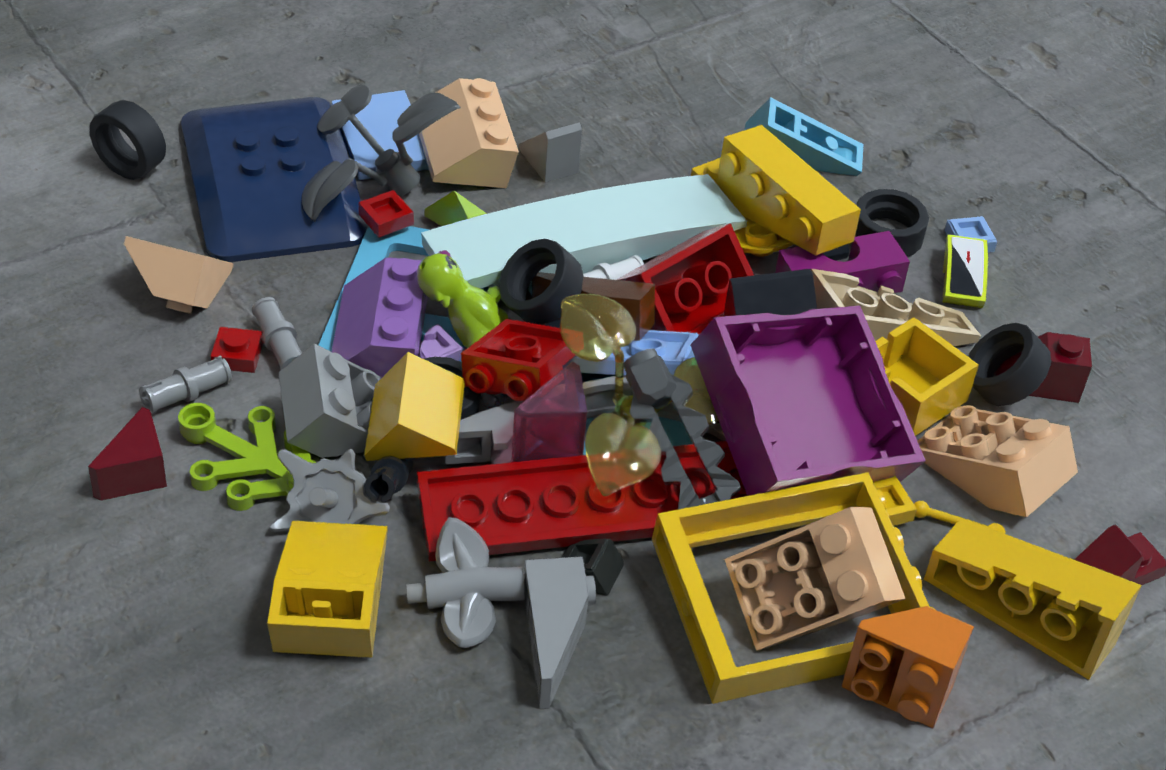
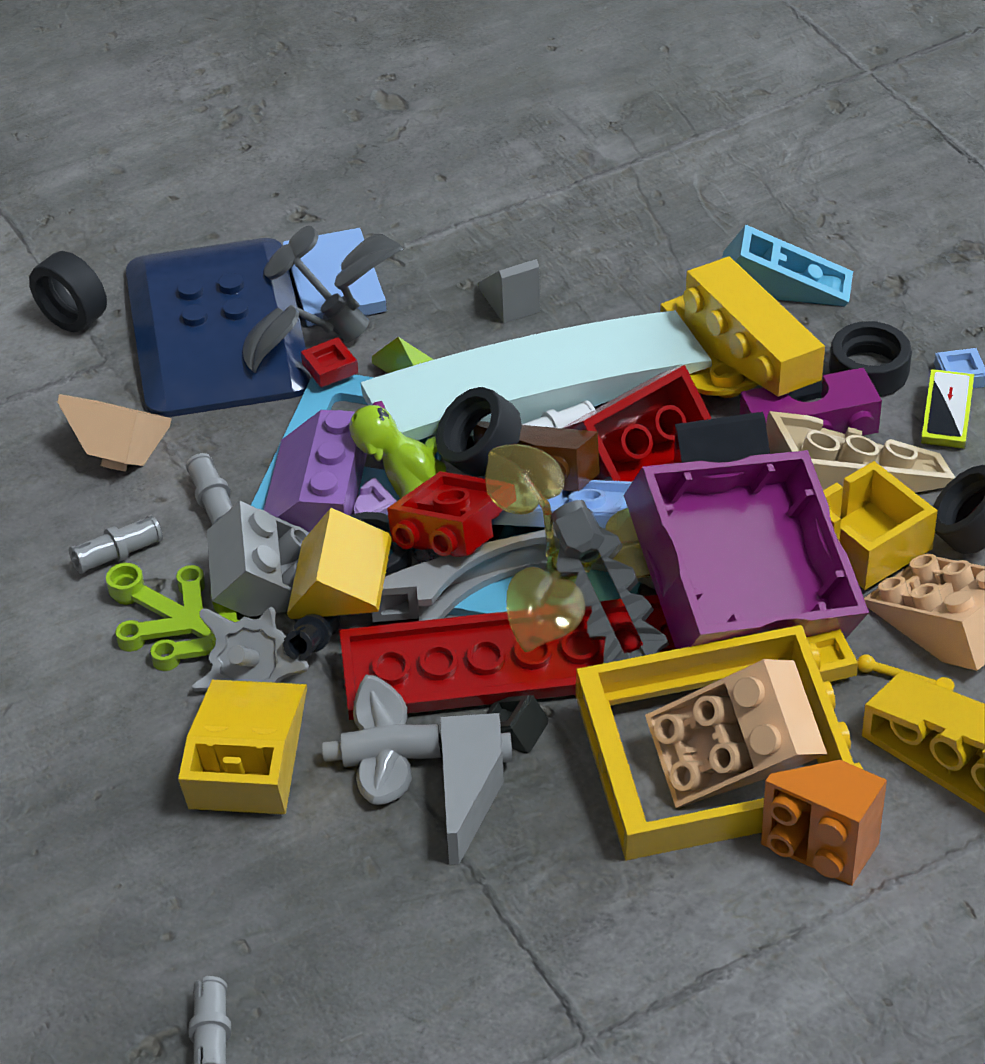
camera: 10 degrees right, 0 degrees up
(130, 461) = (55, 622): dark red slope -> none
(239, 348) = (171, 506): red plate -> none
(471, 142) = (426, 280): light nougat slope -> none
(552, 419) = (475, 574): clear pink slope -> none

